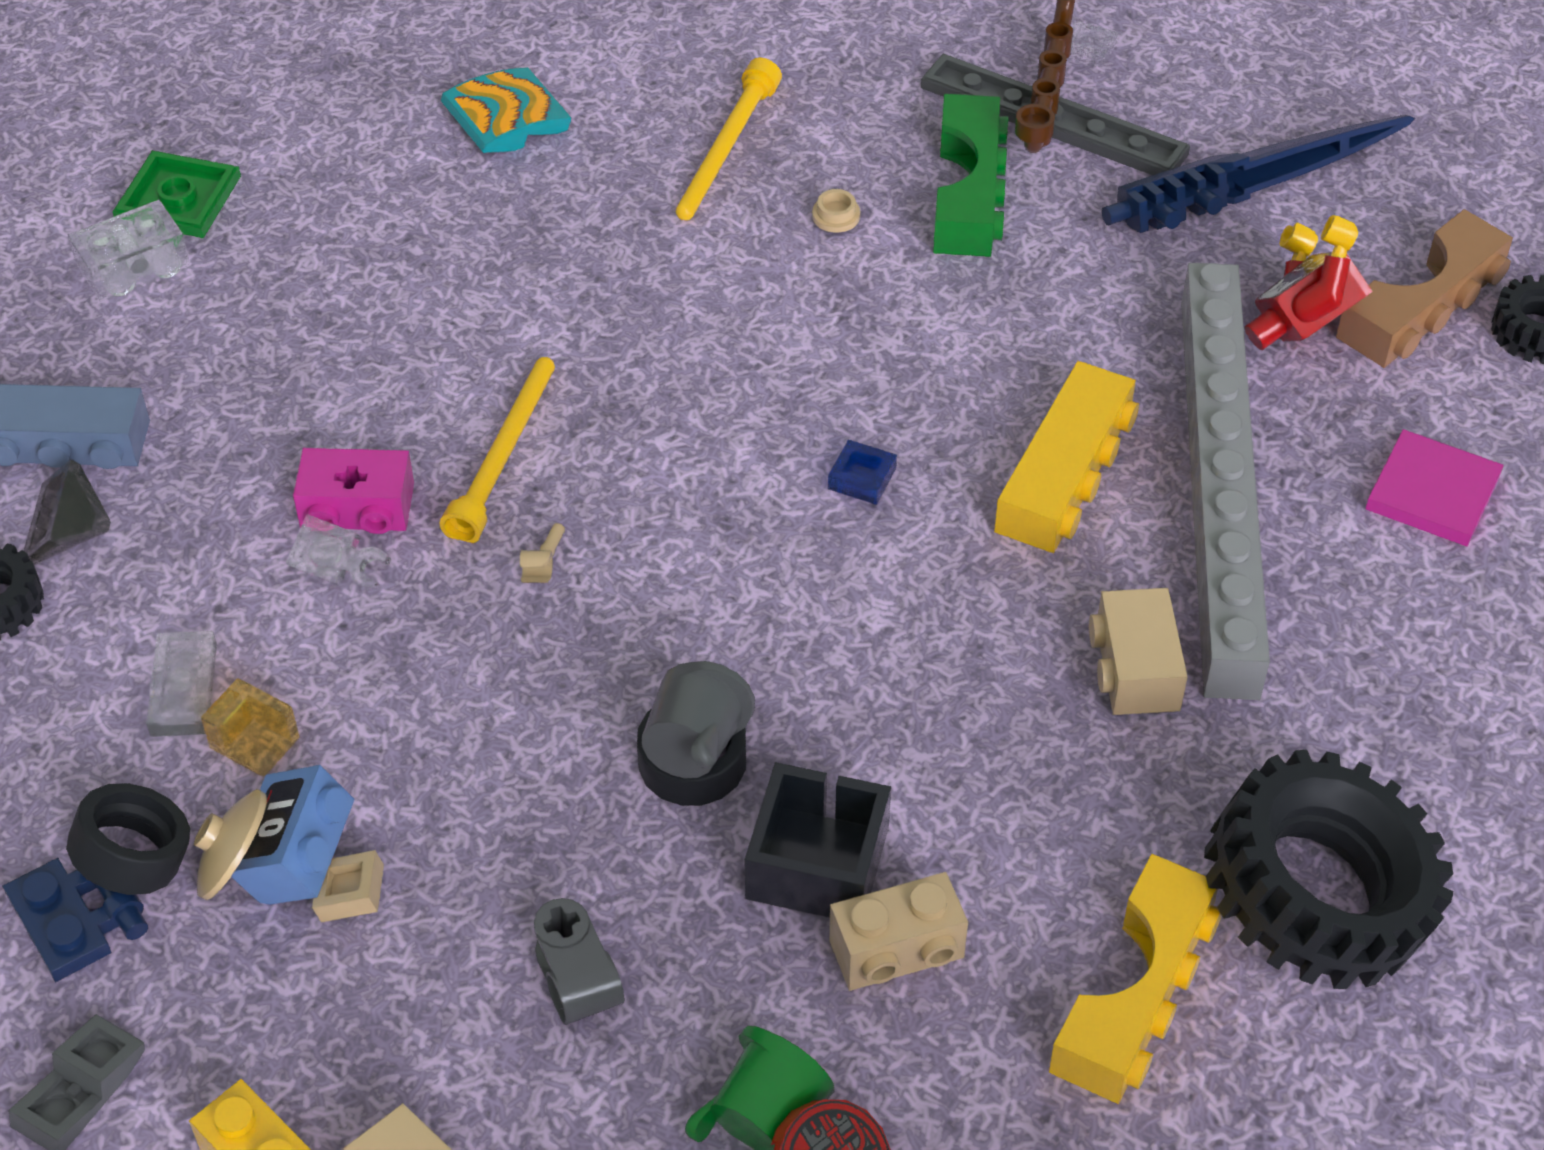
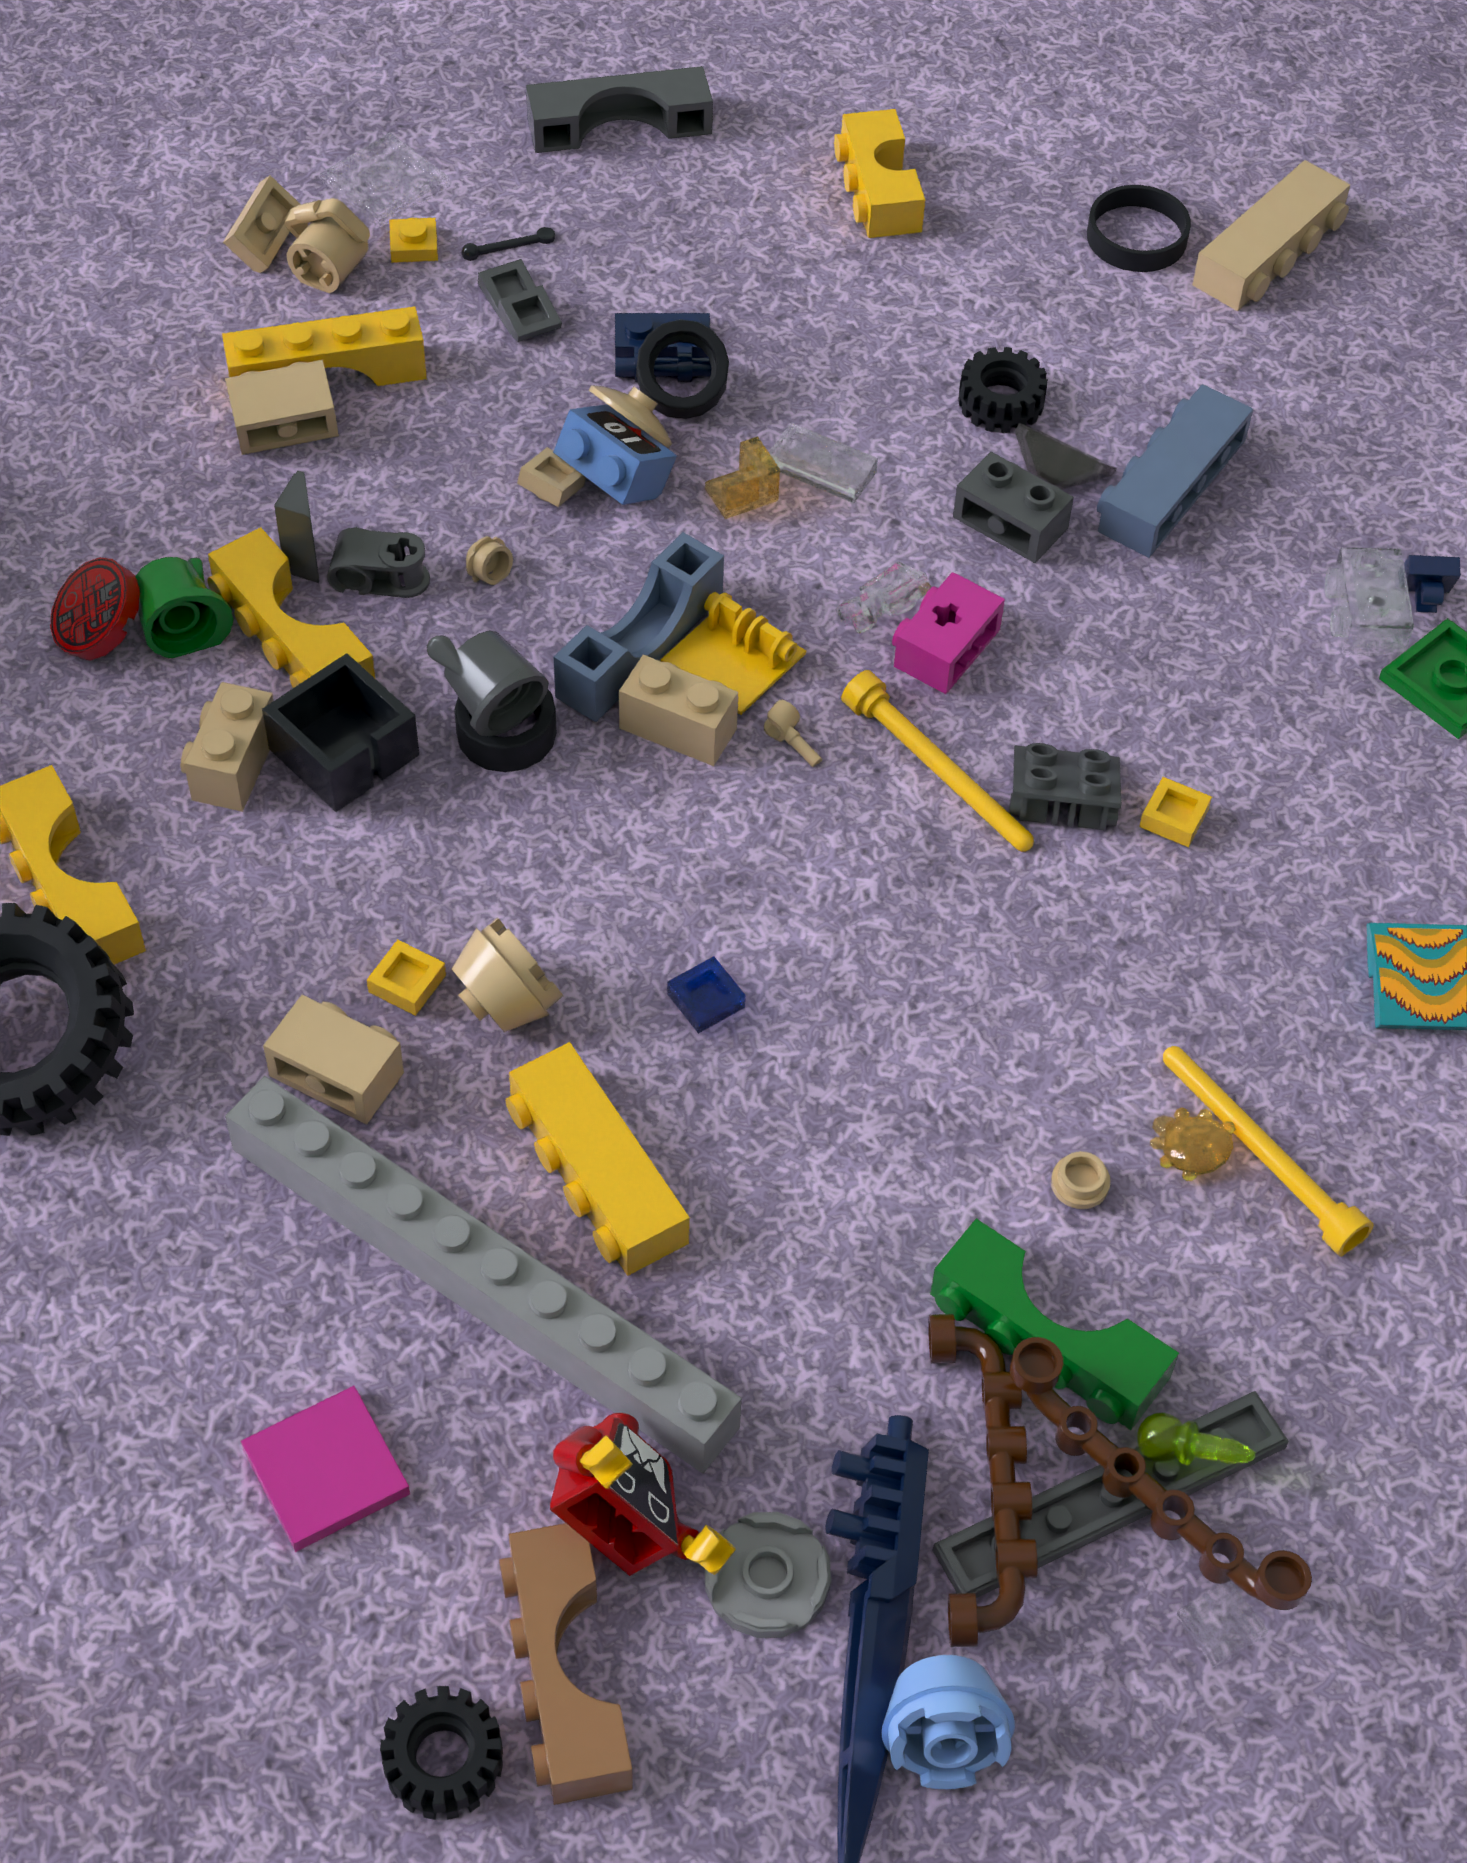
camera: 120 degrees right, 5 degrees up
(73, 217) = (1430, 579): none -> dark blue tile
(158, 513) = (1013, 507): none -> dark grey brick
(450, 285) = (1175, 811): none -> yellow plate
(450, 691) = (670, 603): none -> sand blue arch
(467, 357) = (1066, 776): none -> dark grey hinge
(480, 633) = (736, 650): none -> yellow hinge
(499, 879) = (487, 556): none -> tan plate
(588, 620) = (678, 709): none -> tan brick
(594, 1028) = (295, 528): none -> dark grey slope
(678, 1052) = (255, 581): none -> yellow arch
(751, 174) = (1193, 1142): none -> clear yellow piece
(974, 577) = (503, 979): none -> tan cone
(997, 80) = (1165, 1438): none -> clear neon green bar
(1015, 665) = (406, 977): none -> yellow plate
(1028, 222) = (1009, 1499): none -> reddish brown bar
(1260, 251) = (764, 1598): none -> light grey tile
(1283, 101) = (947, 1722): none -> light blue cone

